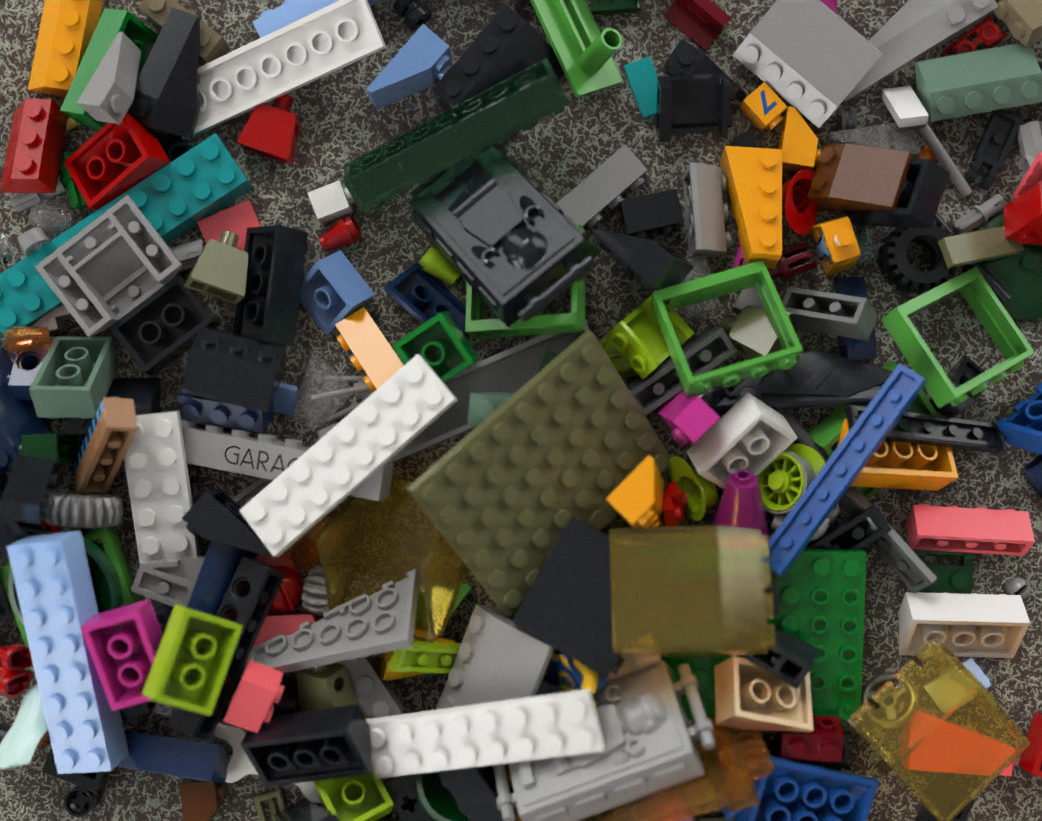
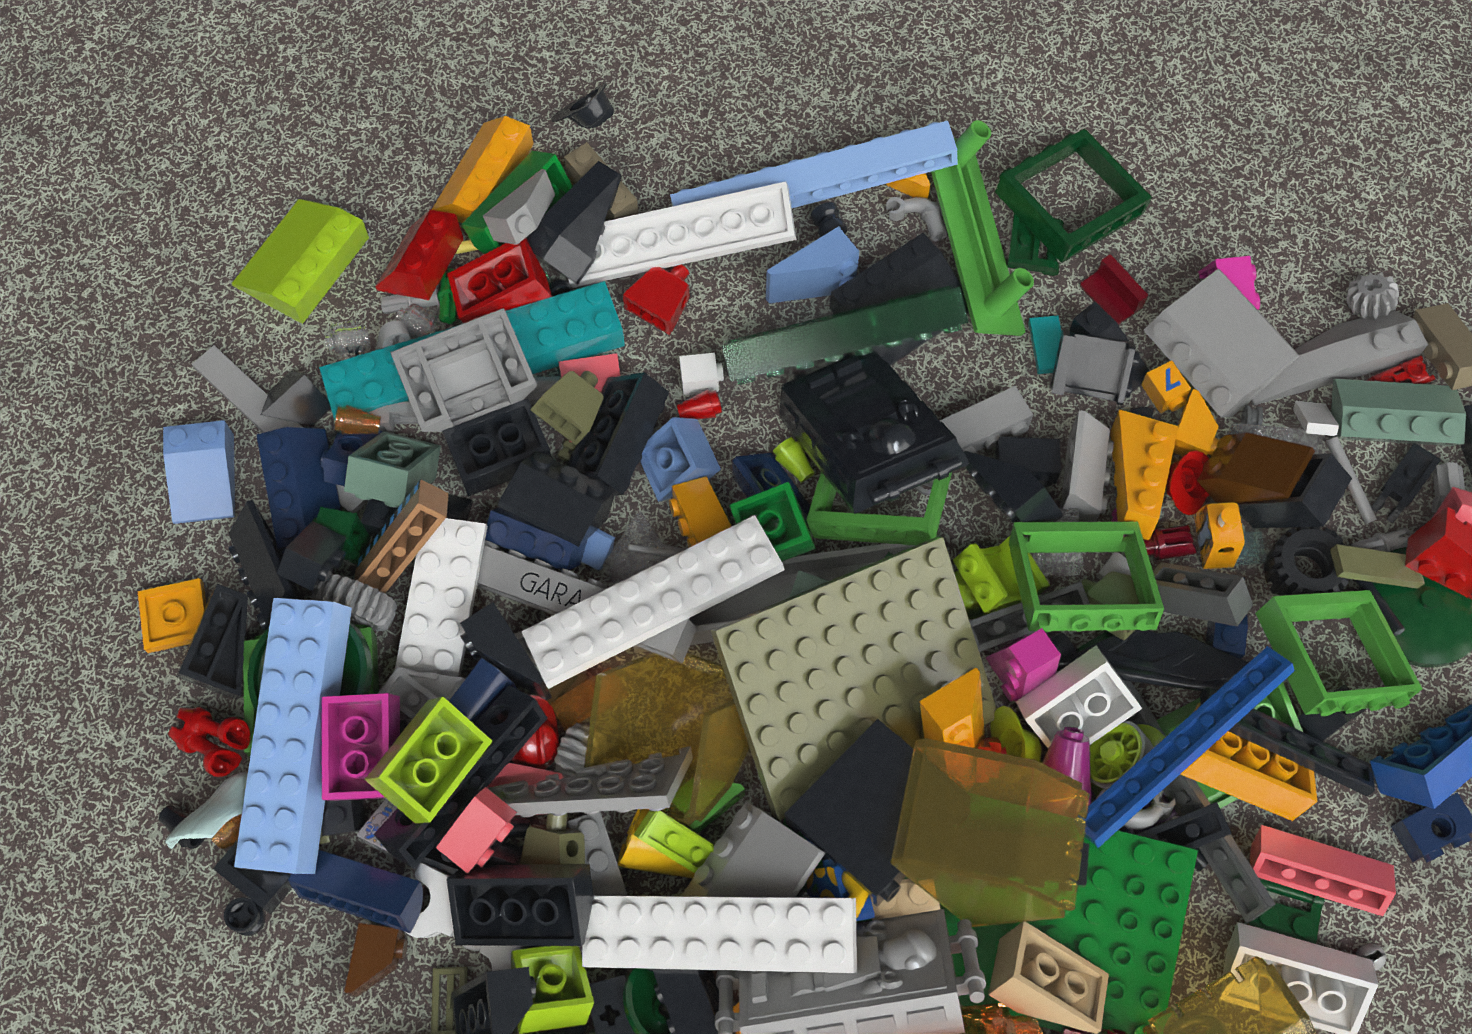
camera: 15 degrees right, 20 degrees down
(789, 658) = (1081, 938): black slope -> none

